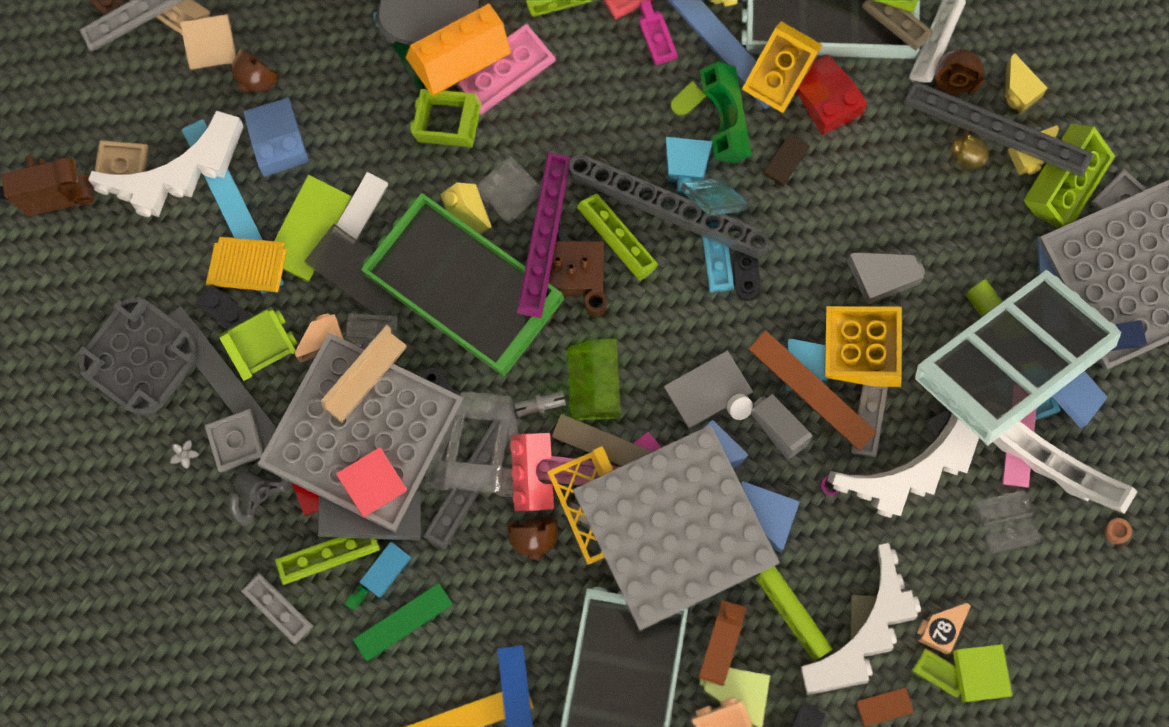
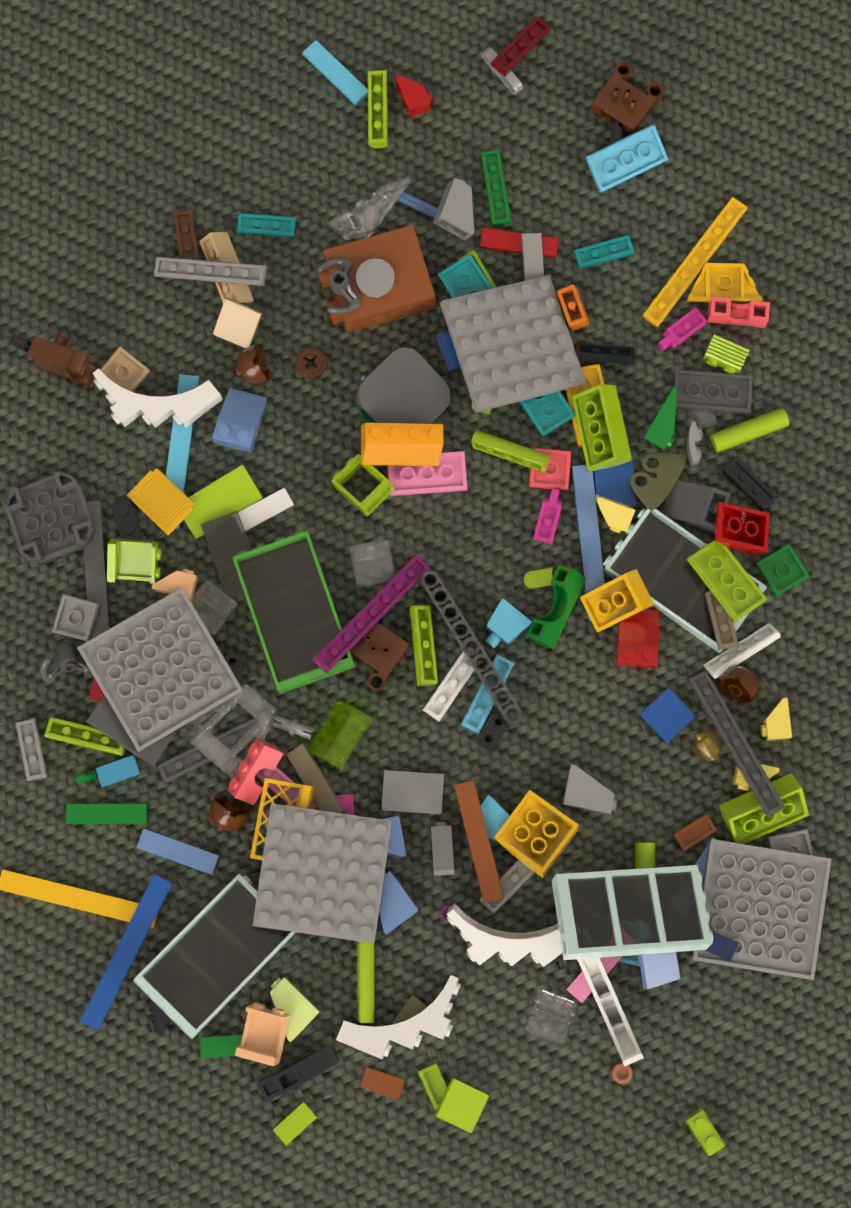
camera: 30 degrees right, 5 degrees up
(183, 454) = (36, 604): light grey plant -> none
(304, 28) = (310, 354): none -> reddish brown gear
(363, 374) = (185, 632): tan panel -> none
(371, 482) = (143, 709): coral tile -> none
(466, 205) = (333, 558): light yellow slope -> none
(505, 611) = (177, 851): none -> medium blue tile
(673, 263) = (450, 687): none -> white tile
(714, 196) = (506, 662): clear light blue tile -> none
(722, 643) = (302, 970): dark orange slope -> none
(739, 406) = (425, 818): white tile -> none
(786, 160) = (577, 667): dark brown tile -> none
(909, 149) = (667, 715): none -> blue tile
(943, 628) = (456, 1058): light nougat slope -> none
(1017, 244) = (694, 832): none -> dark orange tile

